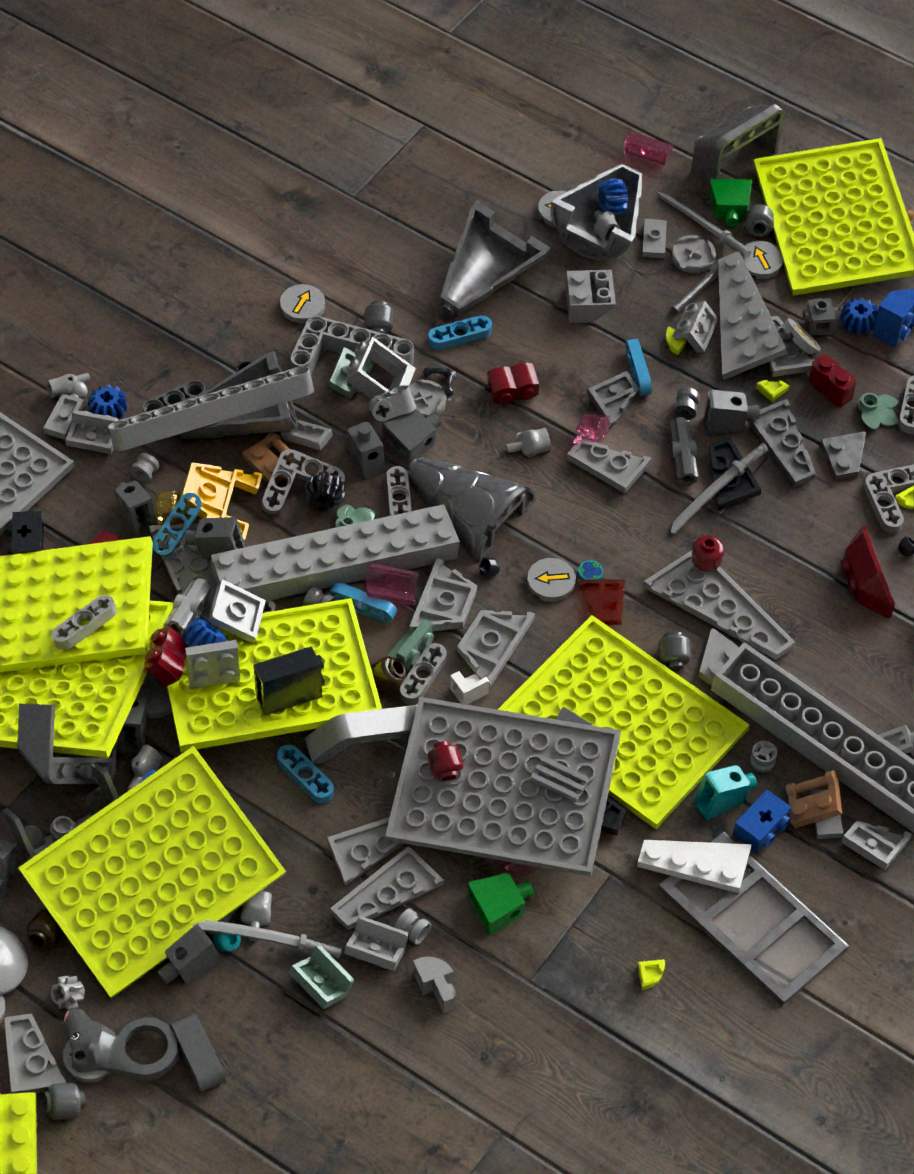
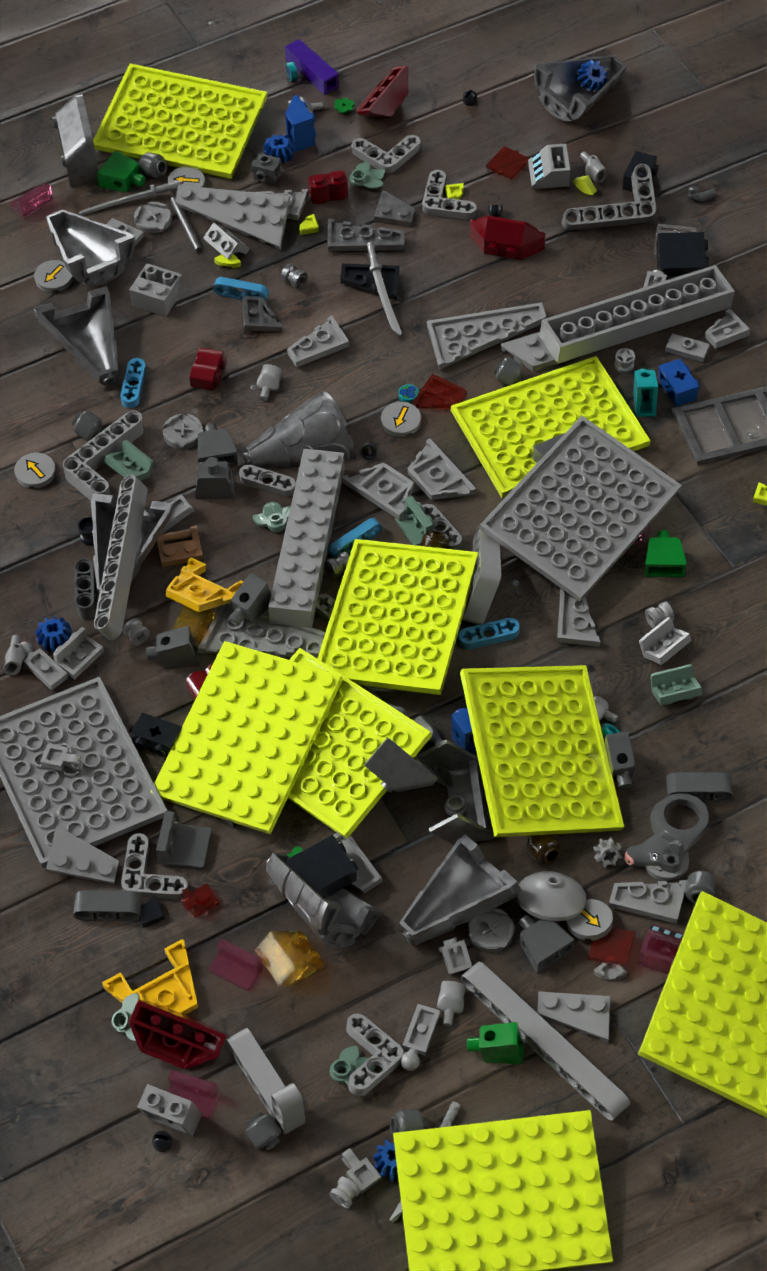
camera: 60 degrees left, 0 degrees up
(101, 617) = (285, 702): light grey beam -> none
(166, 656) = (354, 666): dark red brick -> none
(187, 523) = (216, 629): dark azure beam -> none
(188, 605) = (307, 641): light grey piece -> none
(202, 633) = (351, 636): blue gear -> none
(212, 664) = (384, 636): light grey plate -> none
(236, 611) = (334, 608): plate -> none
(267, 935) = (639, 688): light grey sword -> none
(288, 680) = (429, 592): brick -> none
(289, 473) = (206, 536): light grey beam -> none
(324, 490) = (238, 520): black gear -> none
(383, 357) = (136, 436): light grey window -> none
(389, 887) = (618, 618): light grey wing -> none
(391, 584) = (353, 512): clear pink panel -> none
(395, 403) = (186, 443): light grey piece -> none
(436, 976) = (709, 617): light grey brick -> none
(445, 761) = (548, 528): dark red head -> none
(449, 374) = (168, 406): black piece -> none
(468, 689) = (470, 505): white panel -> none
(540, 768) = (609, 454): light grey tile -> none
(592, 428) = (281, 336): clear pink piece -> none
(604, 225) = (98, 251): light grey piece -> none
(613, 196) = (76, 234): blue gear -> none
(683, 451) = (335, 296): dark grey piece -> none
(701, 862) = (692, 430): white wing -> none
(707, 553) = (444, 314): dark red head -> none
(727, 412) = (321, 255): dark grey torso -> none
(801, 337) = (280, 185): light grey tile -> none
(815, 806) = (684, 347): medium nougat plate -> none

